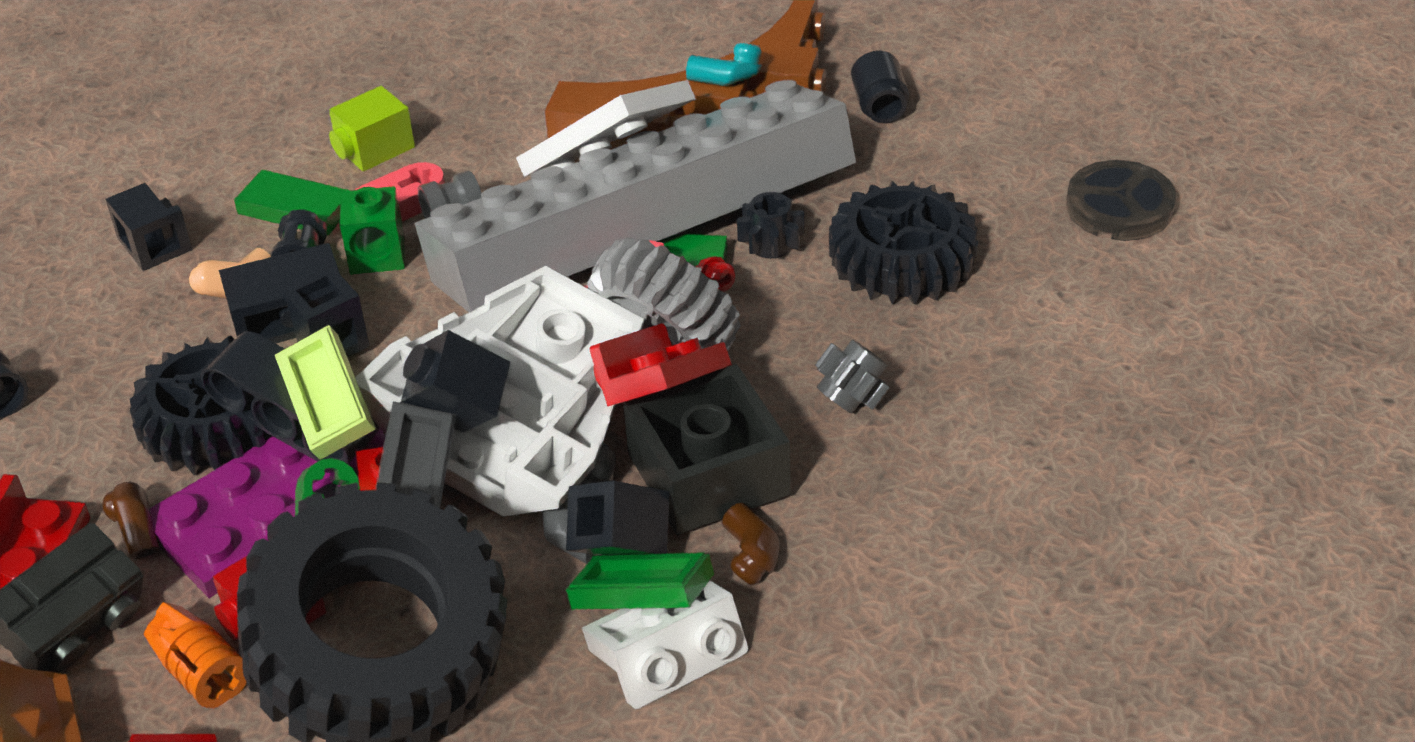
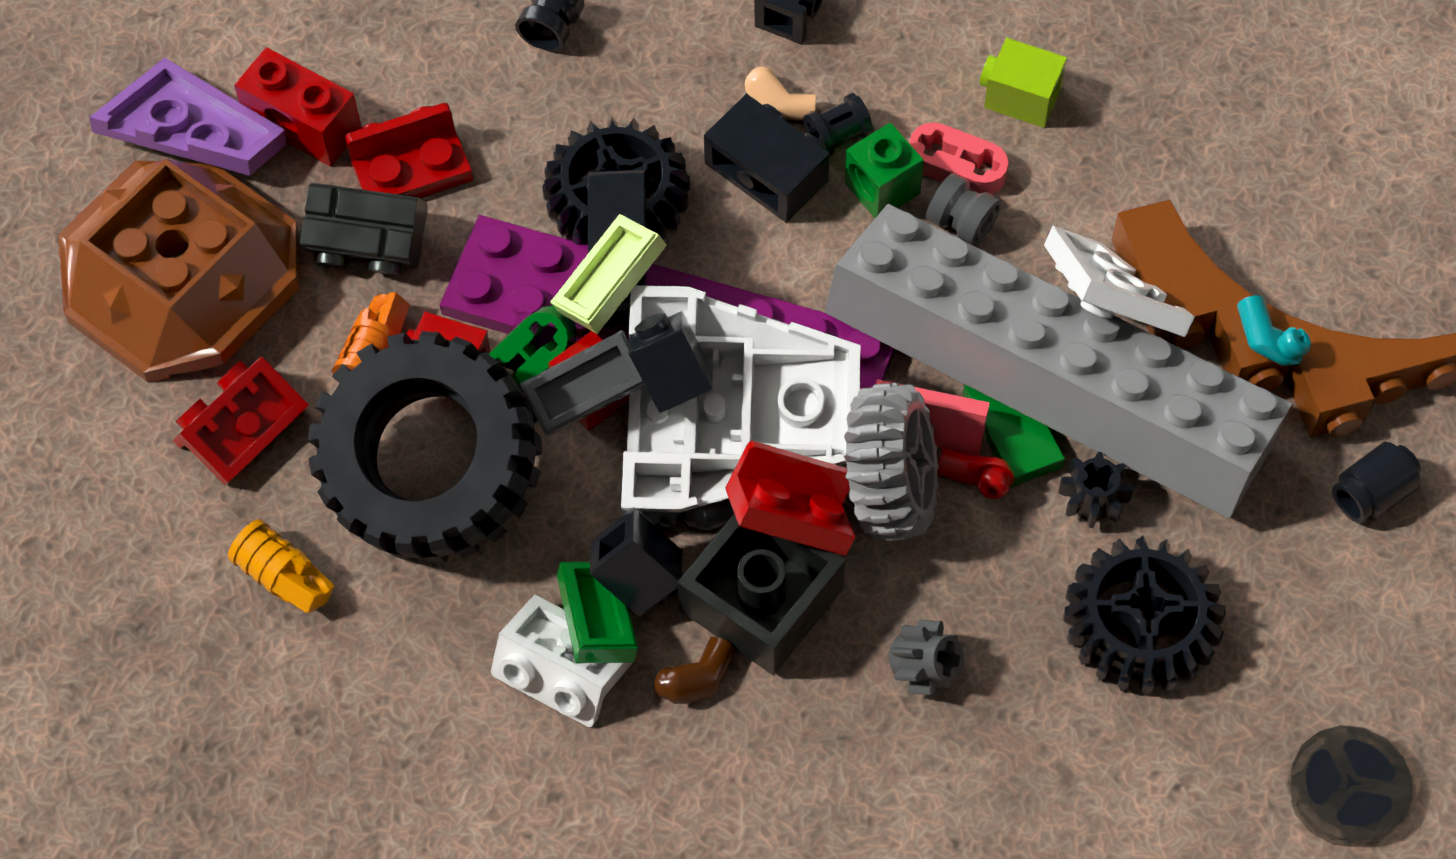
camera: 60 degrees right, 20 degrees up
(130, 507) = (481, 203): reddish brown arm -> none
(275, 195) = (901, 81): green tile -> none
(324, 301) = (745, 207): black brick -> none

